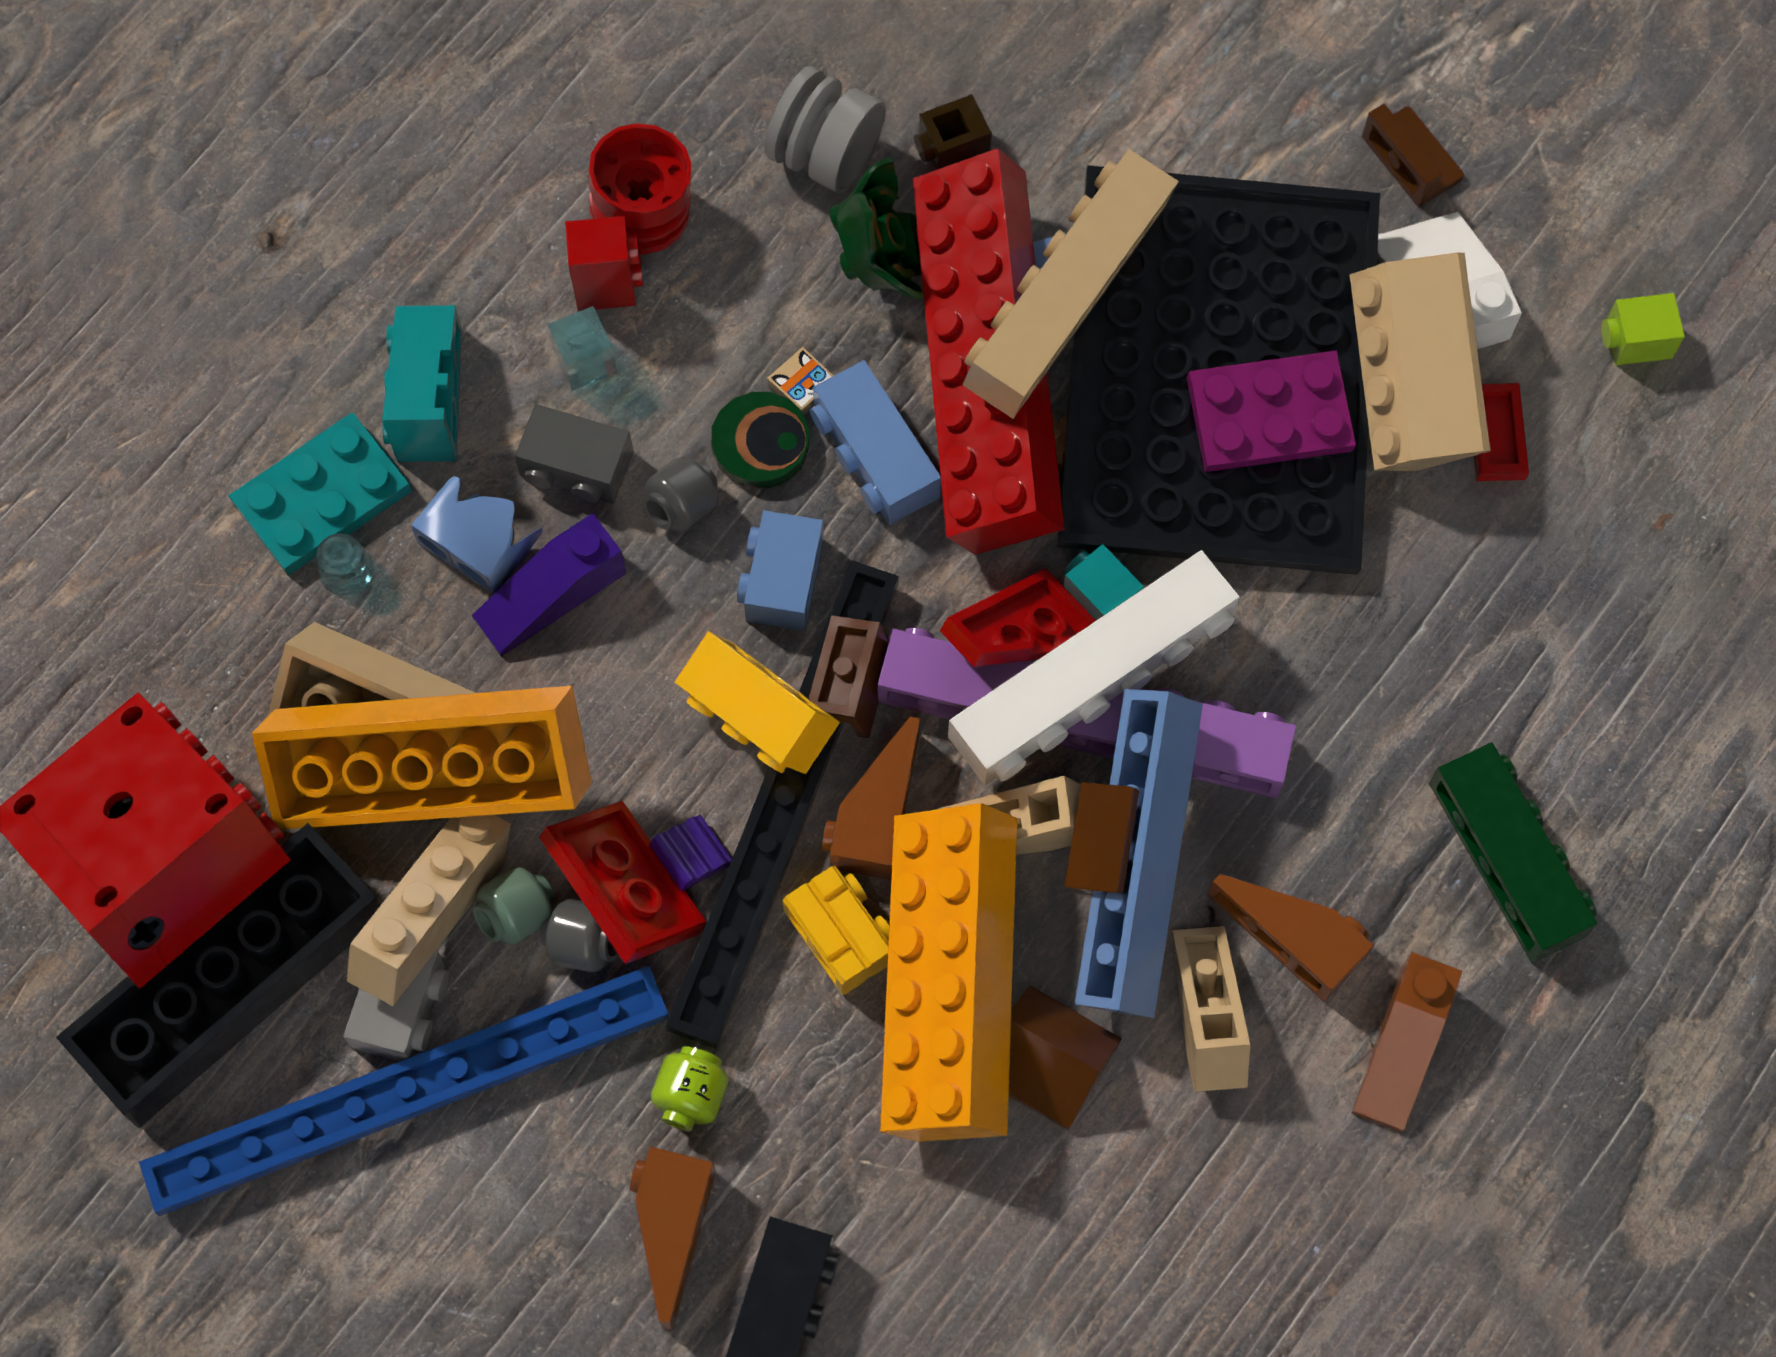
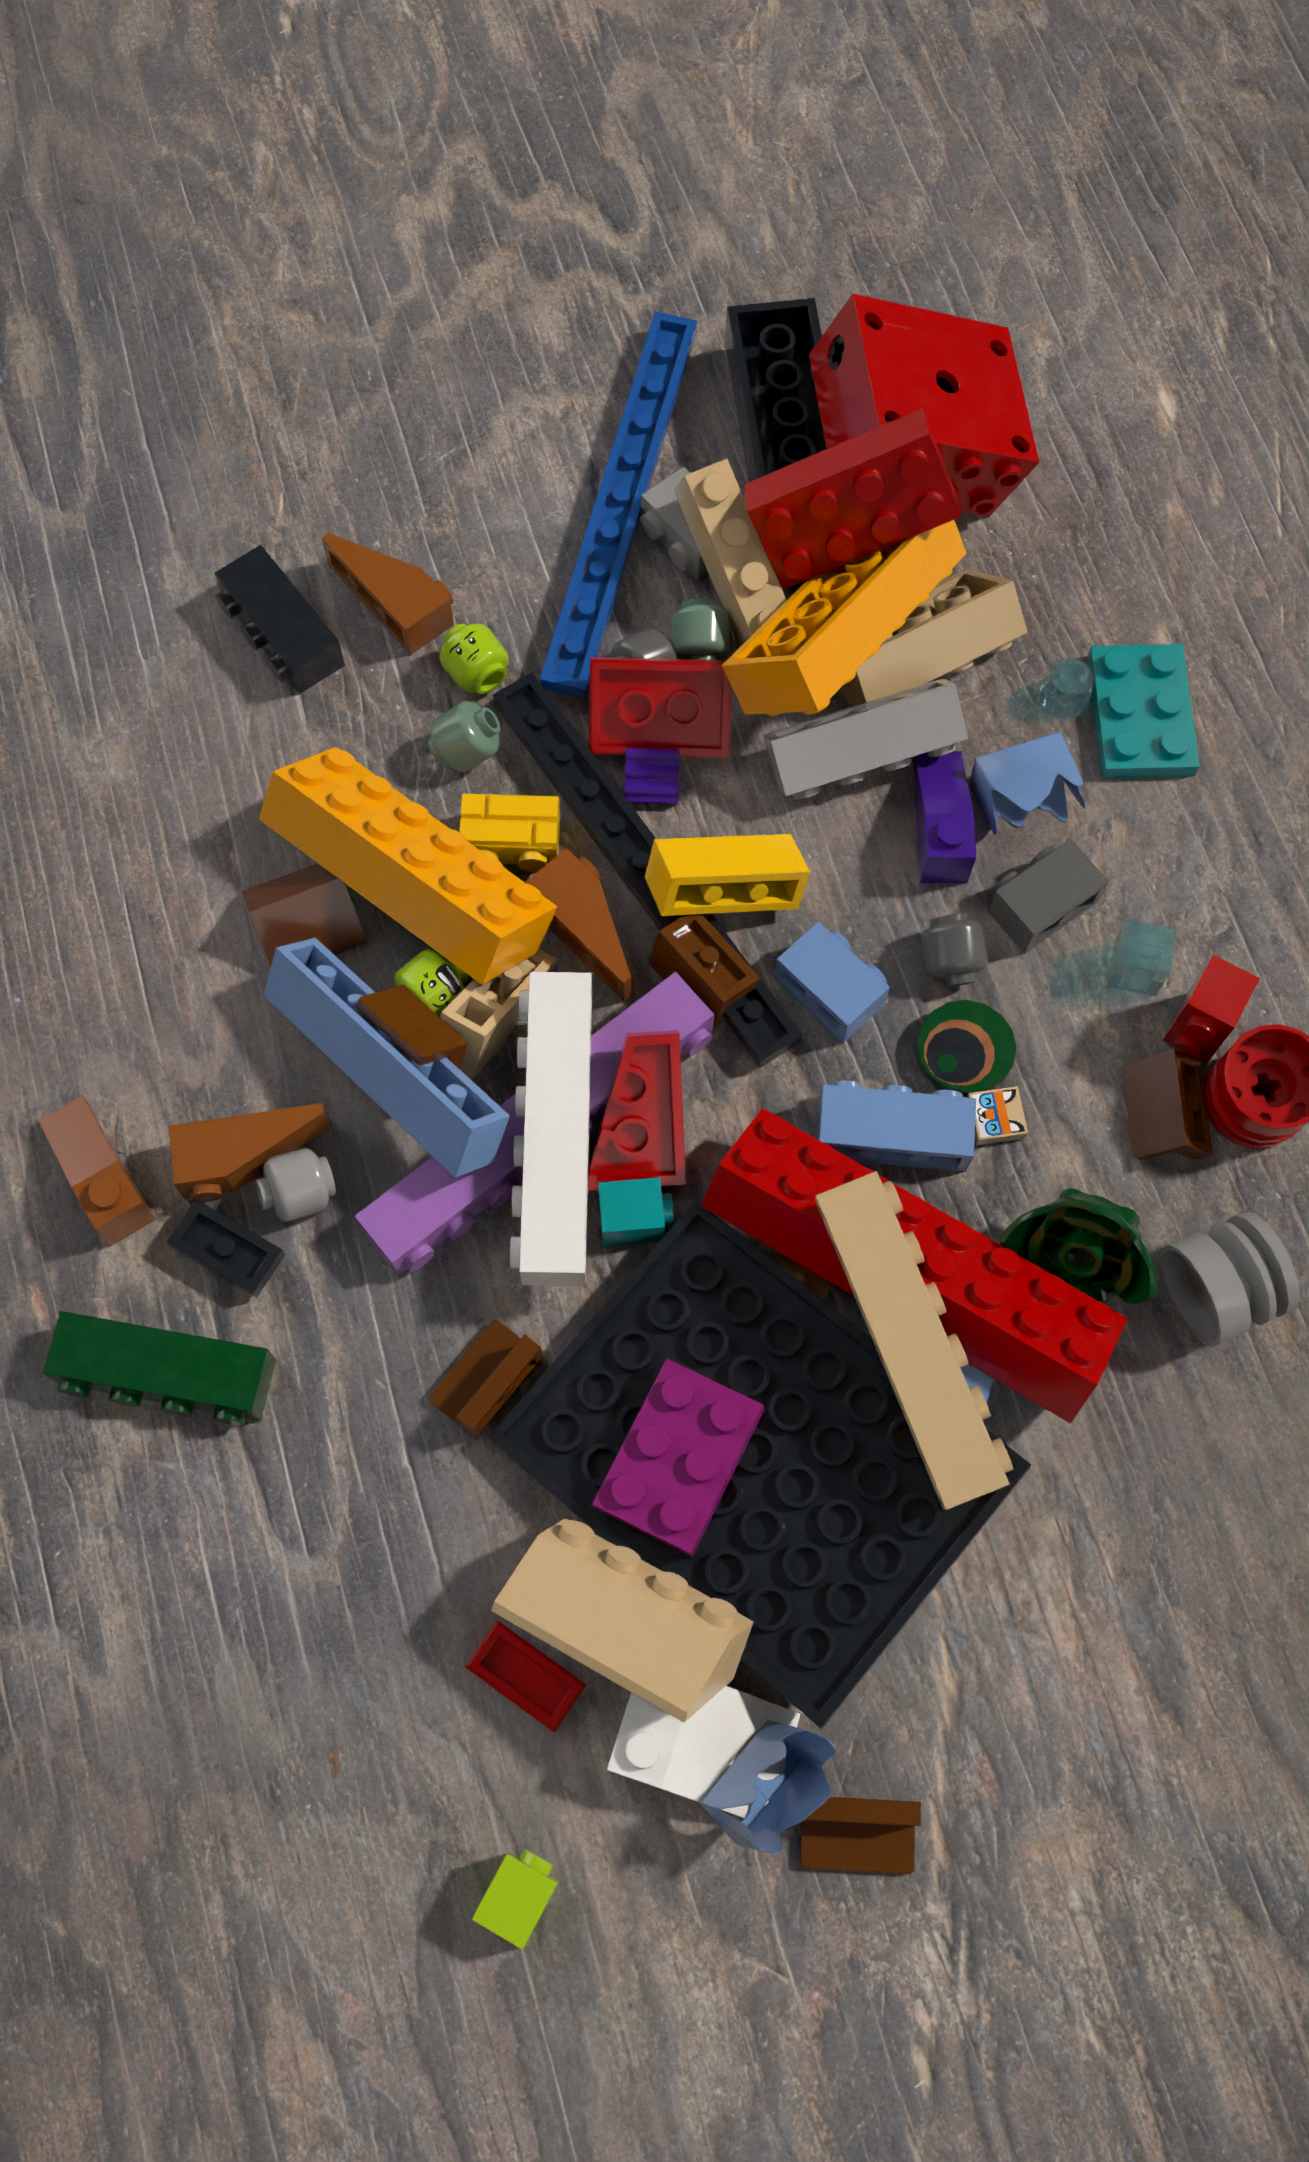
camera: 125 degrees right, 0 degrees up
(320, 803) = (852, 499): none -> red brick
(423, 384) = (1188, 820): teal wedge -> none
(502, 655) = (866, 738): none -> light grey brick
(702, 262) = (1167, 1106): none -> reddish brown panel
(779, 1032) = (464, 736): none -> sand green head
(952, 133) = (1174, 1390): dark brown brick -> none
(1041, 884) = (432, 979): none -> lime head
(1211, 1010) = (239, 1043): tan slope -> none
(1289, 861) = (295, 1184): none -> light grey head
(1315, 607) = (486, 1377): none -> reddish brown panel
(1382, 880) = (226, 1248): none -> black plate
(1440, 206) = (791, 1795): none -> medium blue piece

